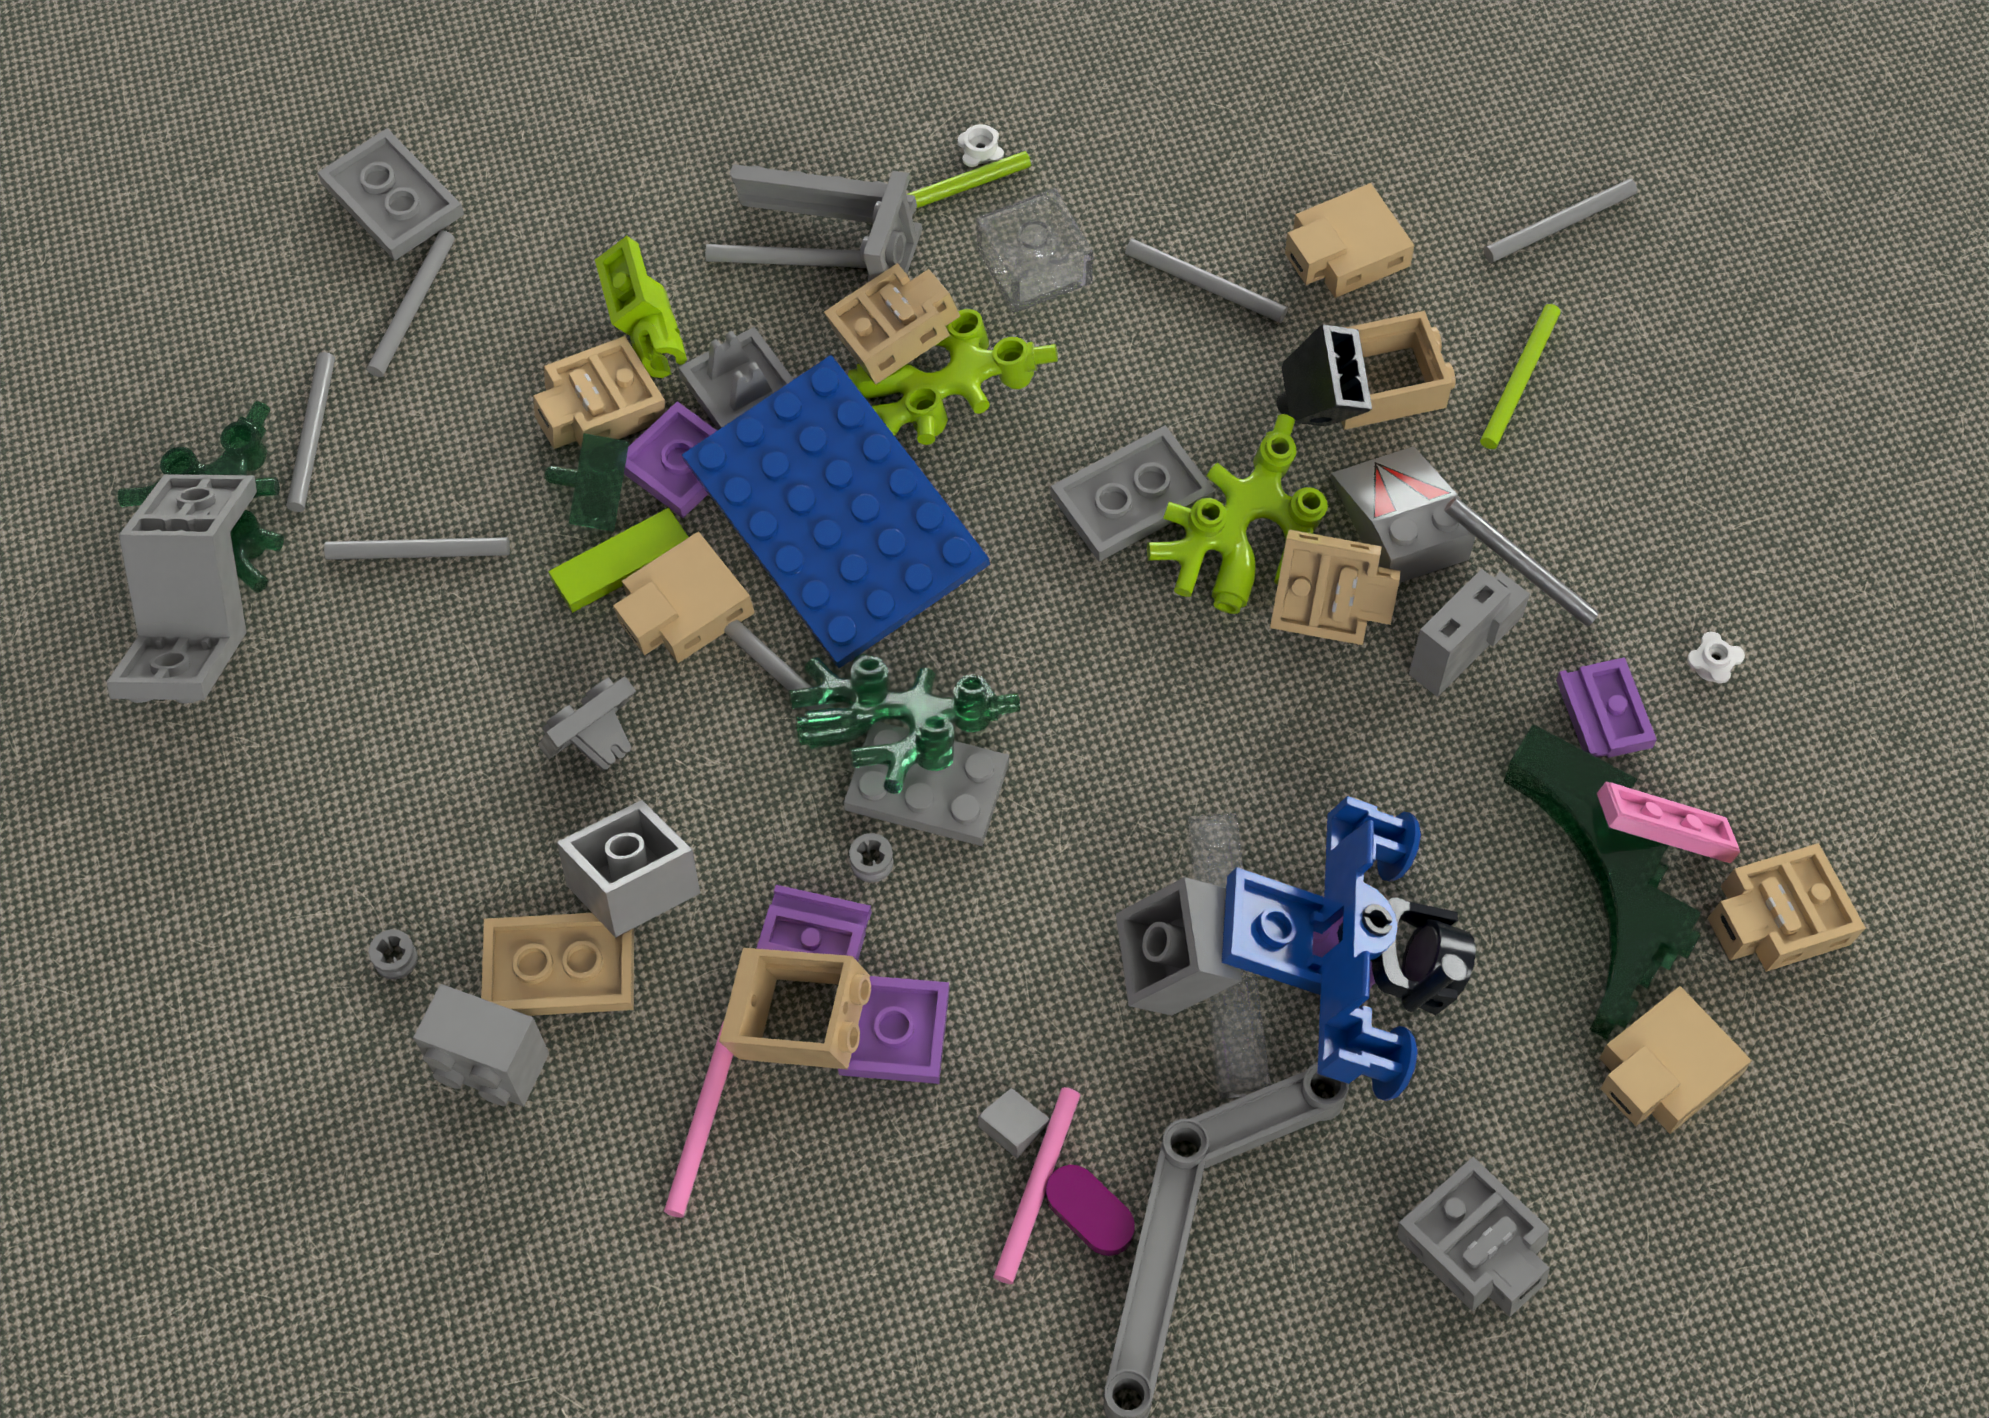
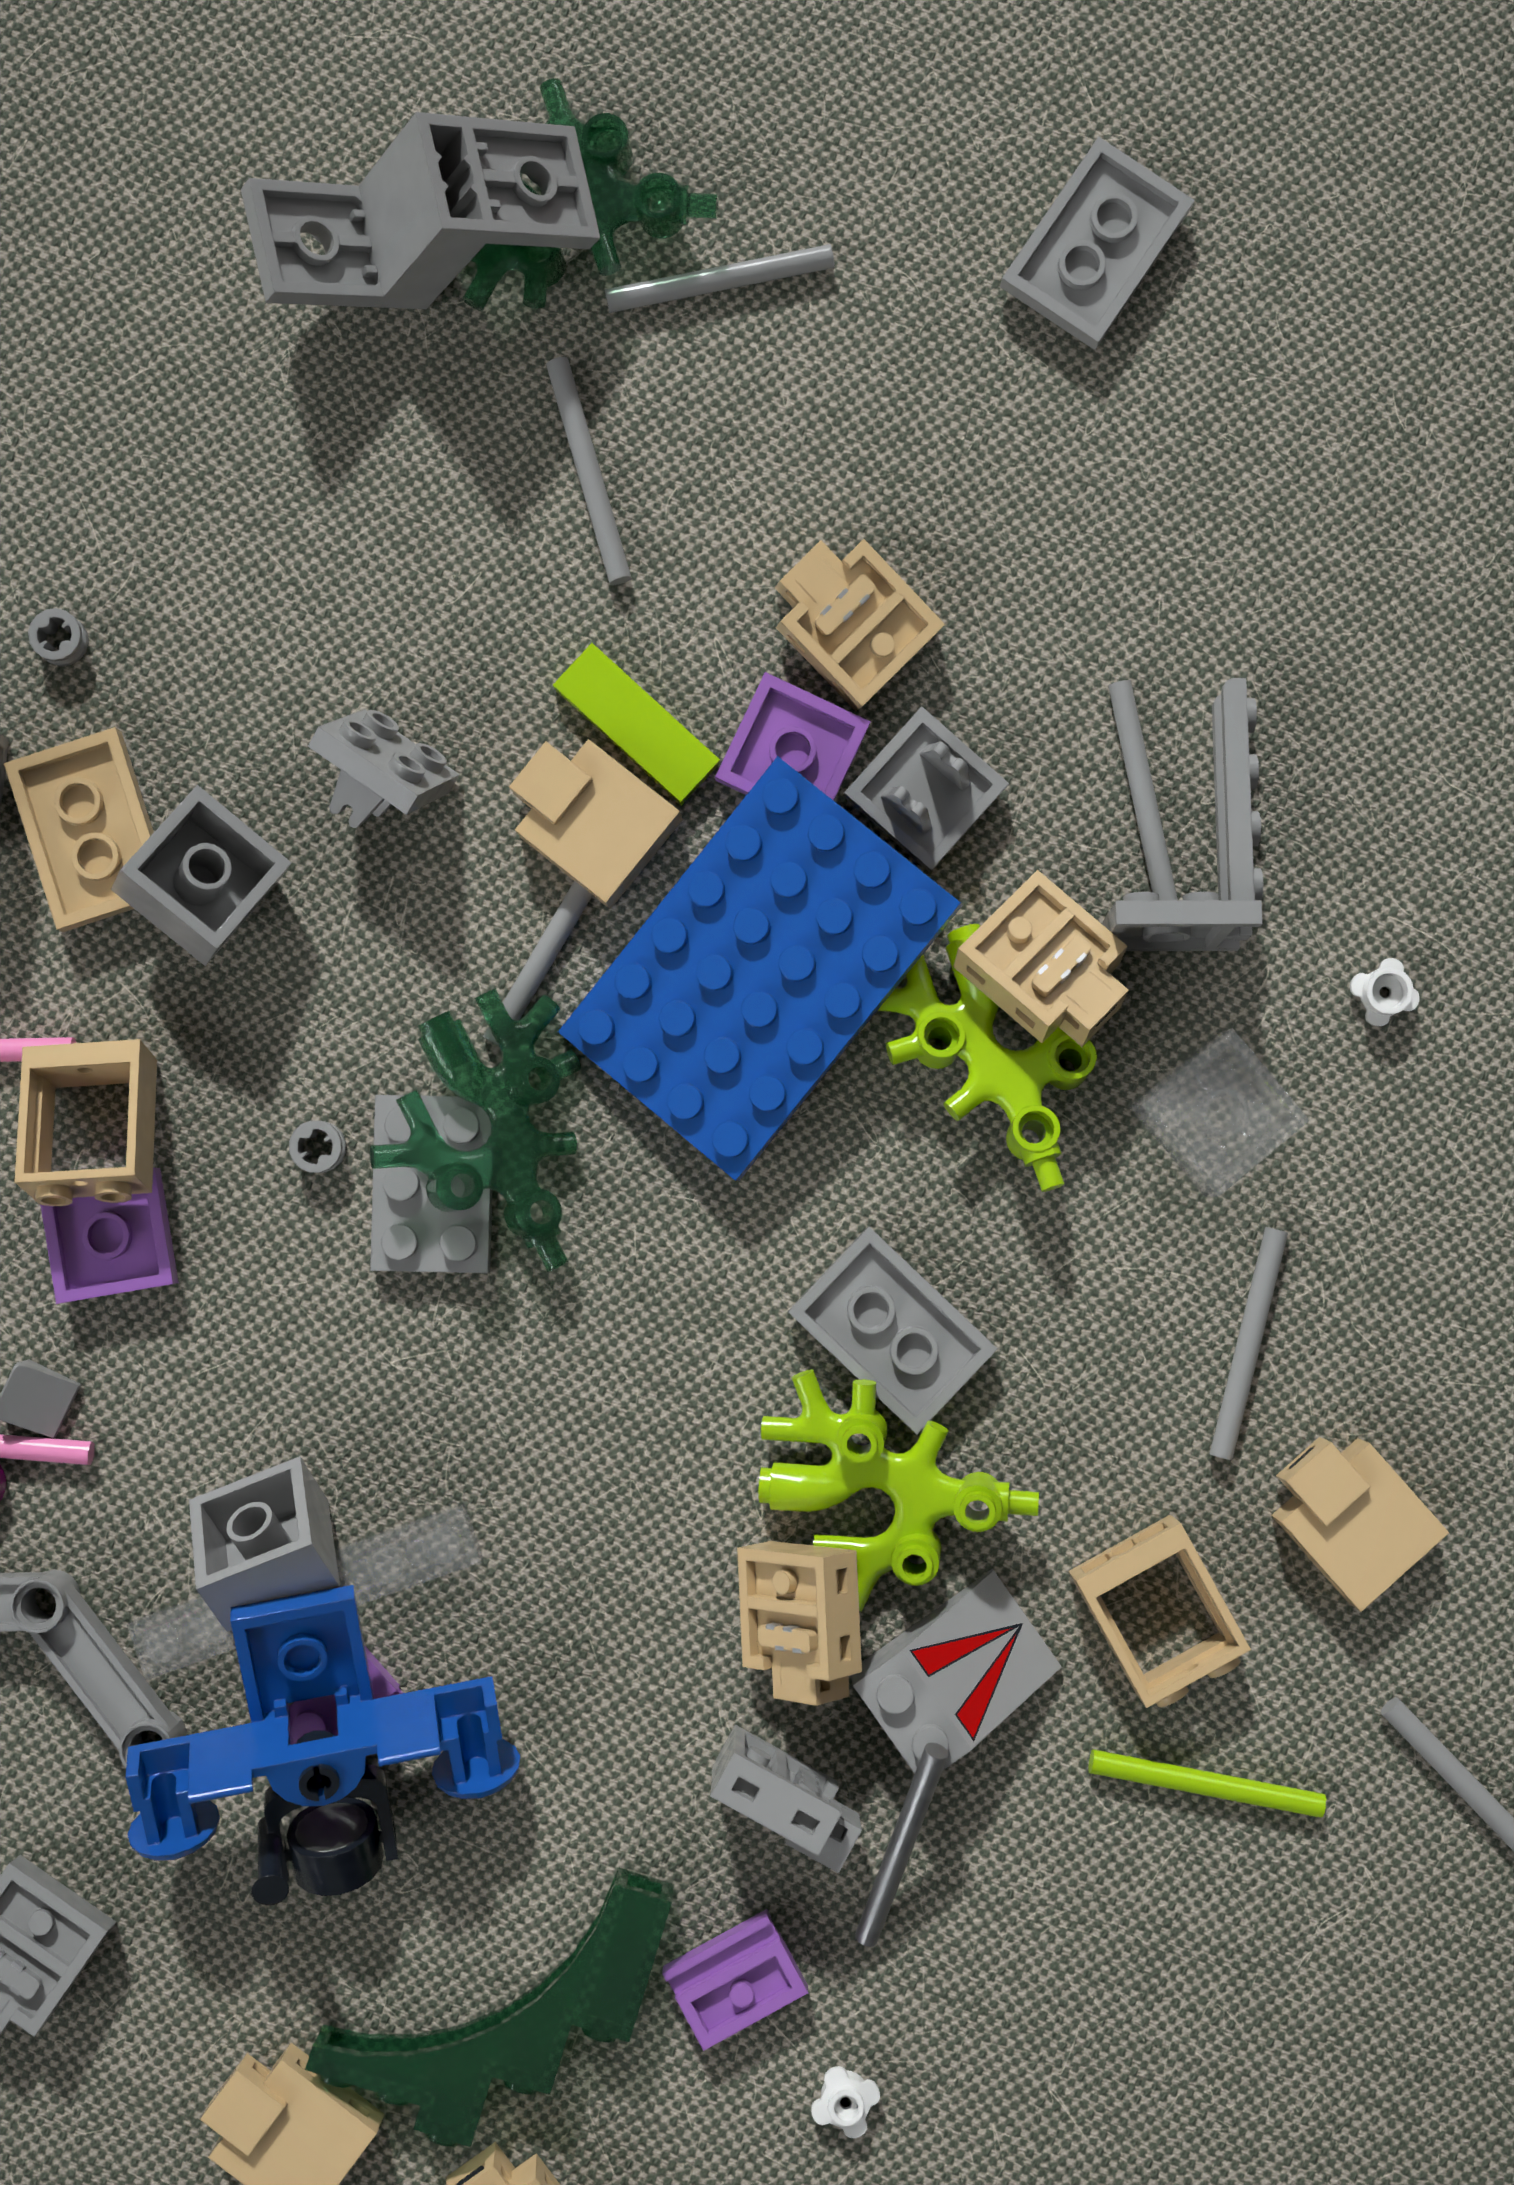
camera: 70 degrees right, 25 degrees up
(410, 304) = (941, 332): light grey bar -> none
(595, 483) = (721, 659): clear green plate -> none
(640, 307) = (994, 628): lime plate -> none
(814, 923) = (203, 1109): medium lavender plate -> none
(971, 179) = (1323, 985): lime bar -> none
(1325, 378) = (1093, 1549): black torso -> none
(1668, 822) = (579, 2088): bright pink tile -> none

